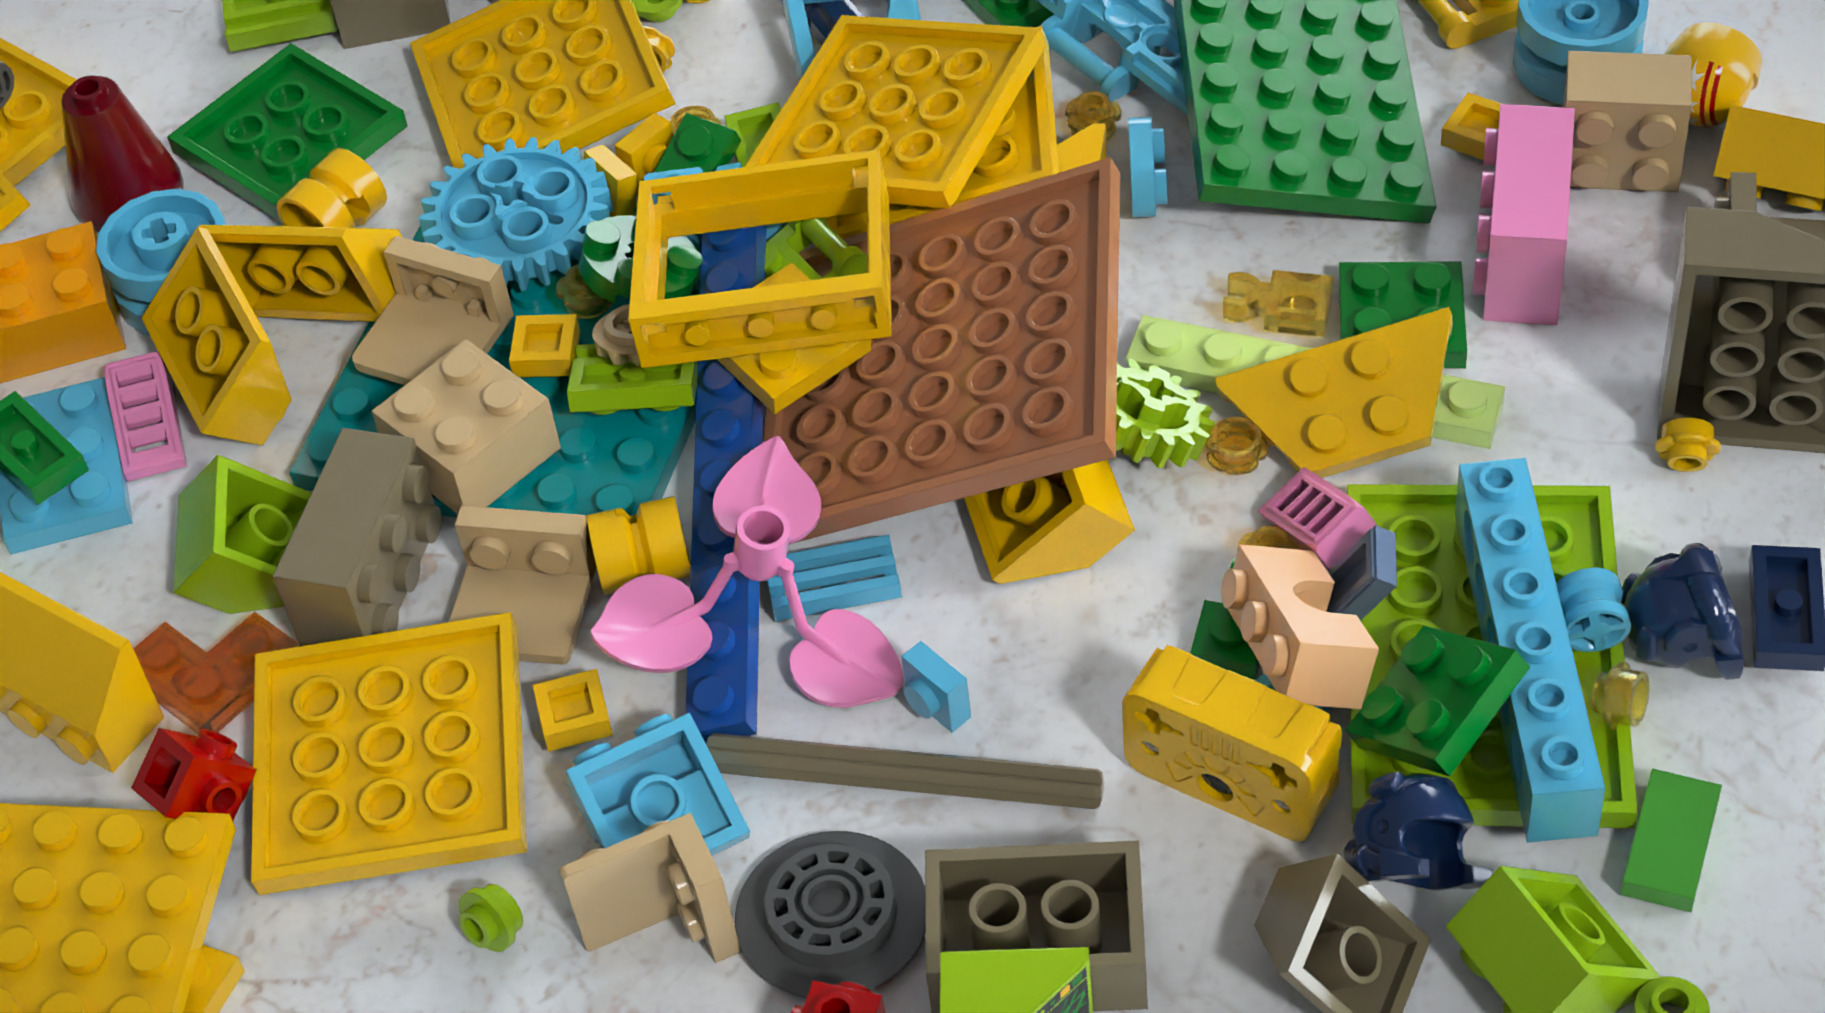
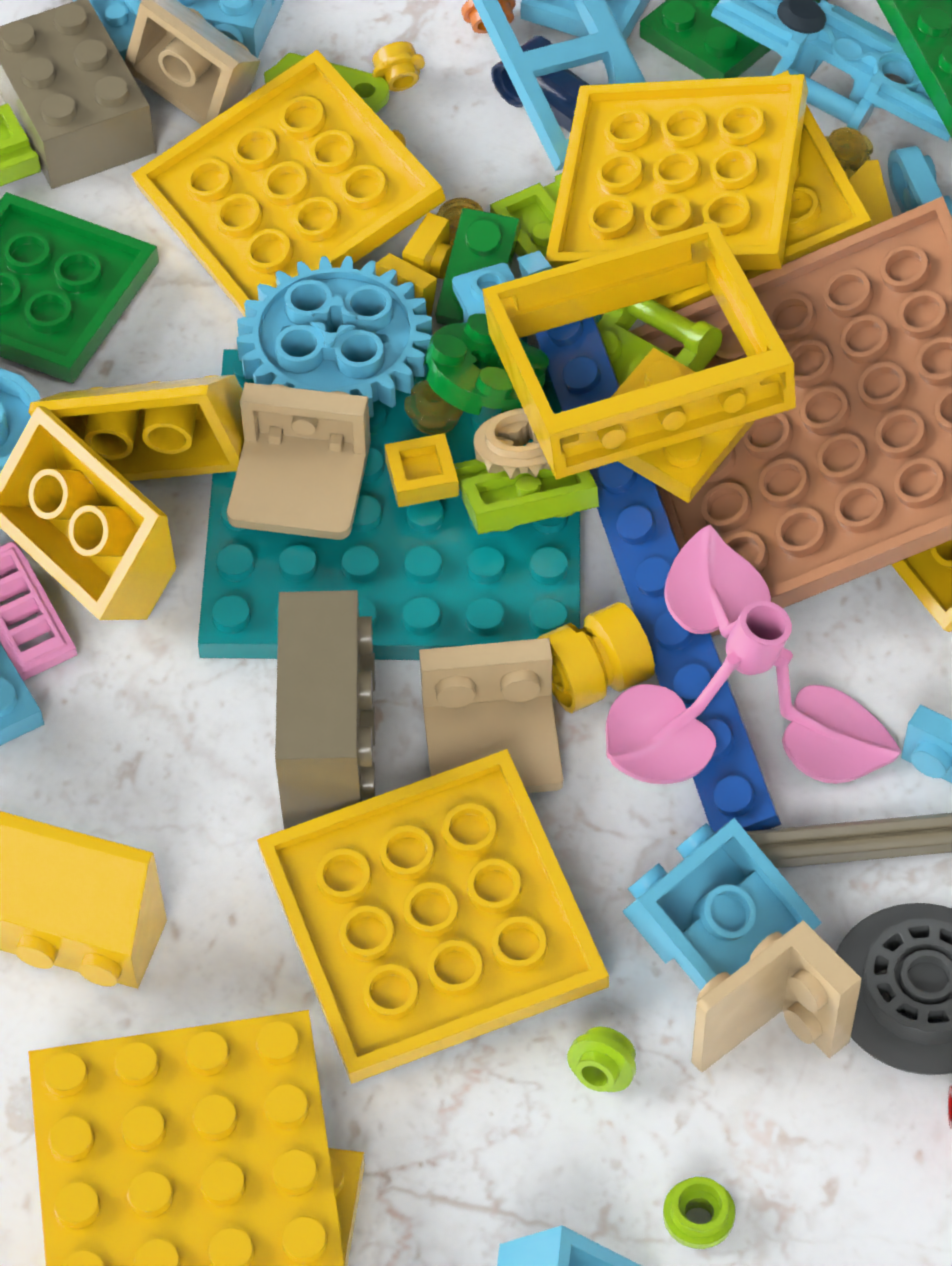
camera: 20 degrees left, 5 degrees up
(193, 774) = (251, 977): red brick -> none
(208, 686) = (214, 876): clear orange plate -> none
(233, 536) = (187, 722): lime slope -> none
(337, 194) = (128, 346): yellow wheel -> none
(471, 425) = (397, 557): tan brick -> none
(572, 710) = (593, 835): yellow plate -> none
(831, 569) = (809, 632): medium azure tile -> none

